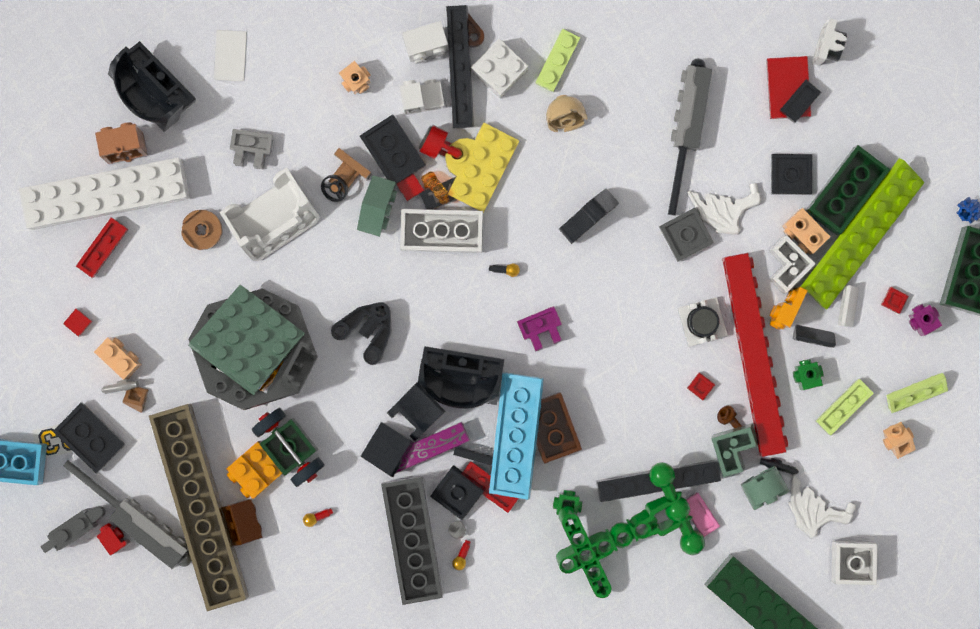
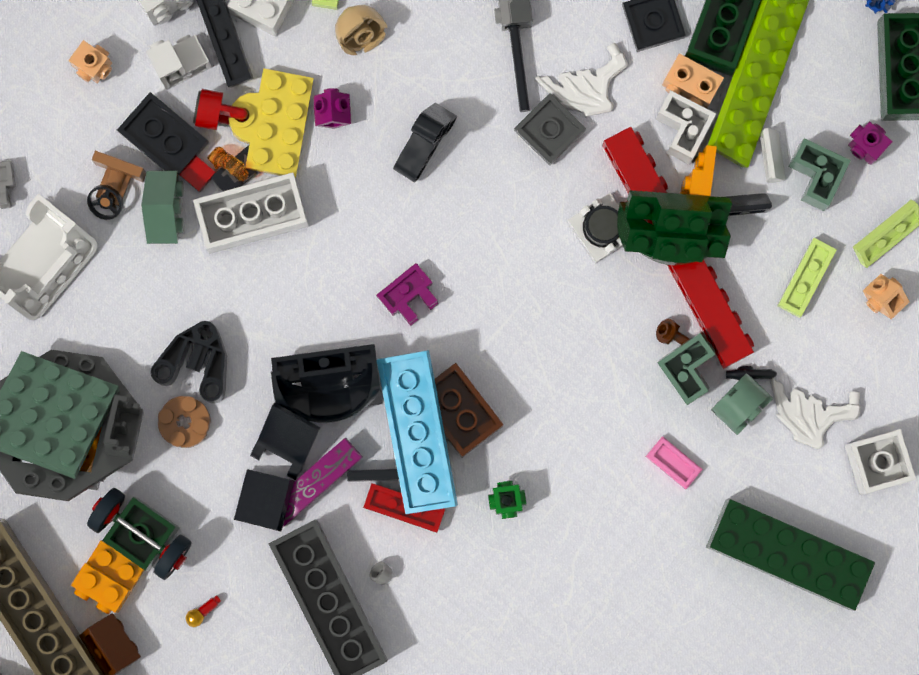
camera: 20 degrees left, 5 degrees down
(338, 381) = (187, 407): none -> medium nougat plate
(457, 492) = (367, 526): black tile -> none
(460, 562) = (396, 613): piece -> none
(511, 269) = (351, 235): piece -> none
(526, 169) = (332, 109): none -> magenta brick
(640, 484) = (609, 436): black arch -> none
(675, 507) = (641, 462): green piece -> none
(700, 386) = (625, 306): red tile -> none
(763, 342) = (678, 229): none -> dark green piece
(814, 379) = (748, 260): green brick -> none
(884, 331) = (825, 170): none -> sand green brick
(894, 300) = (826, 132): red tile -> none

